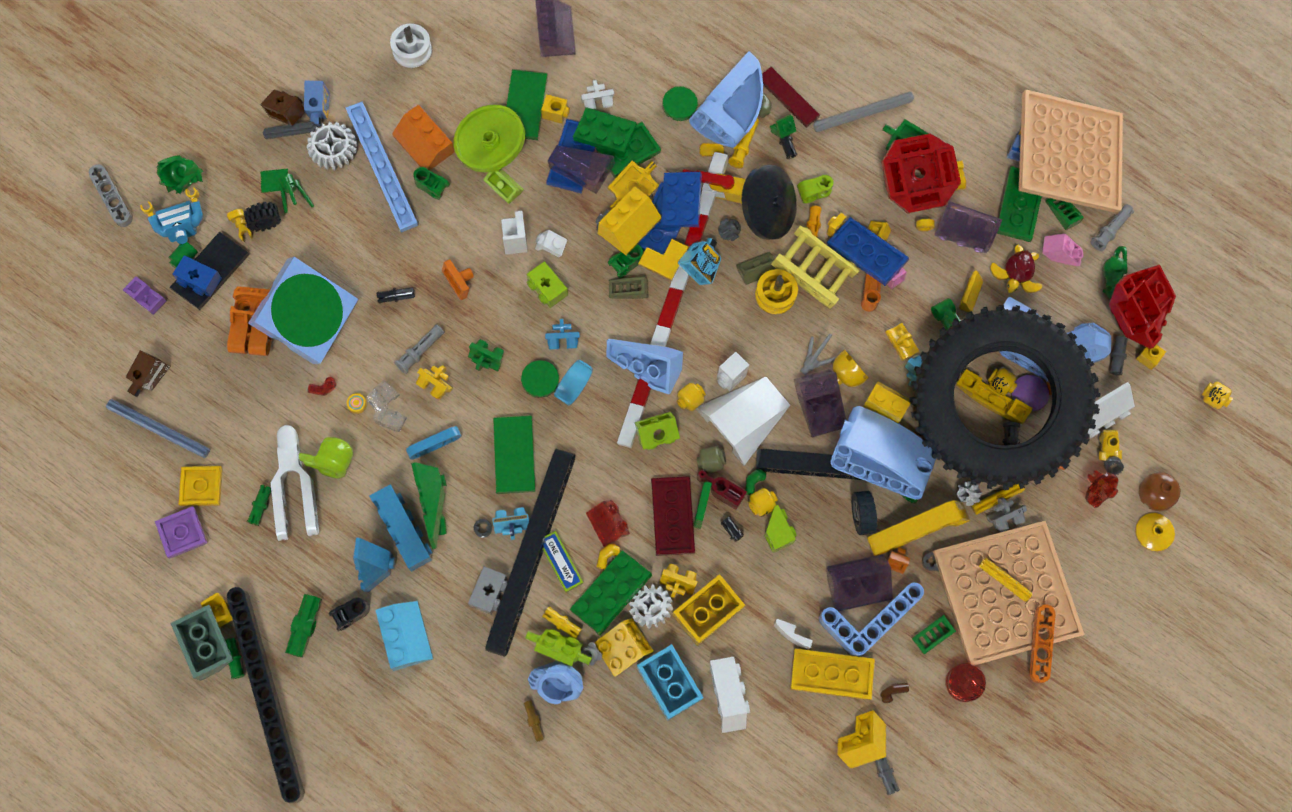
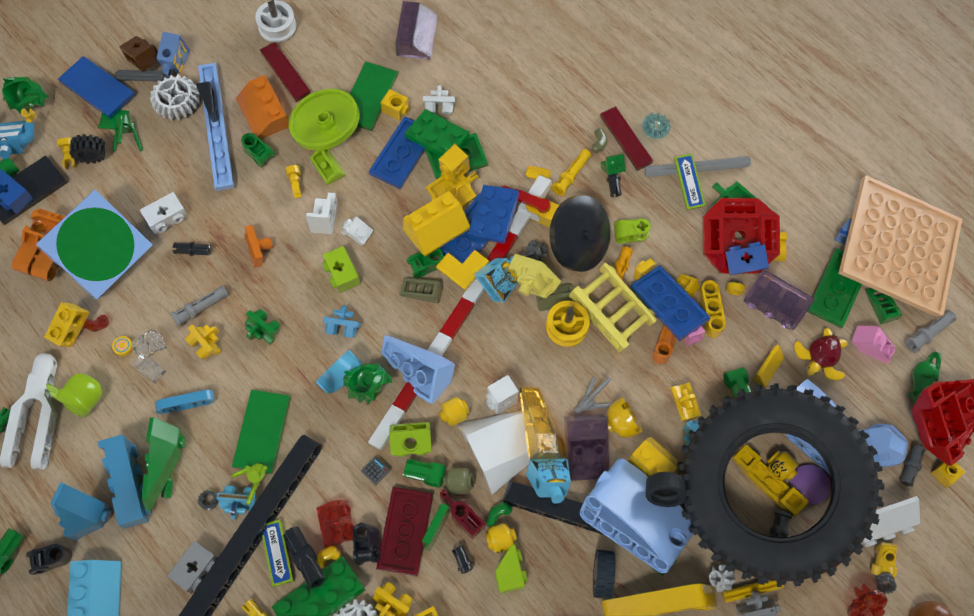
camera: 15 degrees right, 5 degrees down
(247, 150) = (96, 87): none -> blue tile
(298, 394) = (66, 324): none -> yellow brick
(361, 257) = (164, 213): none -> white brick
(365, 137) = (208, 96): none -> black slope
(434, 96) = (285, 71): none -> dark red tile
(473, 198) = (293, 173): none -> yellow piece
(522, 494) = (255, 475): none -> lime plant
(540, 379) = (308, 360): green tile -> none
(582, 166) = (405, 162): clear purple wedge -> none
(588, 558) = (304, 557): none -> black piece
(601, 387) = (365, 382): none -> green hair
(631, 467) = (375, 470): none -> dark grey tile
(633, 159) = (454, 164): none -> yellow brick
(643, 538) = (366, 545): none -> black piece
(679, 103) = (518, 123): green tile -> none
(683, 458) = (431, 474): none -> green piece
(732, 105) = (566, 133): light blue panel -> none
(735, 253) = (534, 276): none -> light yellow brick
(777, 399) = (541, 431): none -> clear yellow wedge
(795, 438) = (549, 478): none -> medium azure torso
(809, 82) = (649, 127): none -> clear light blue gear
(859, 129) = (689, 181): none -> tile
(905, 416) = (666, 498): none -> black tyre
(908, 240) = (713, 300): none -> yellow beam
(942, 195) = (758, 262): none -> blue brick

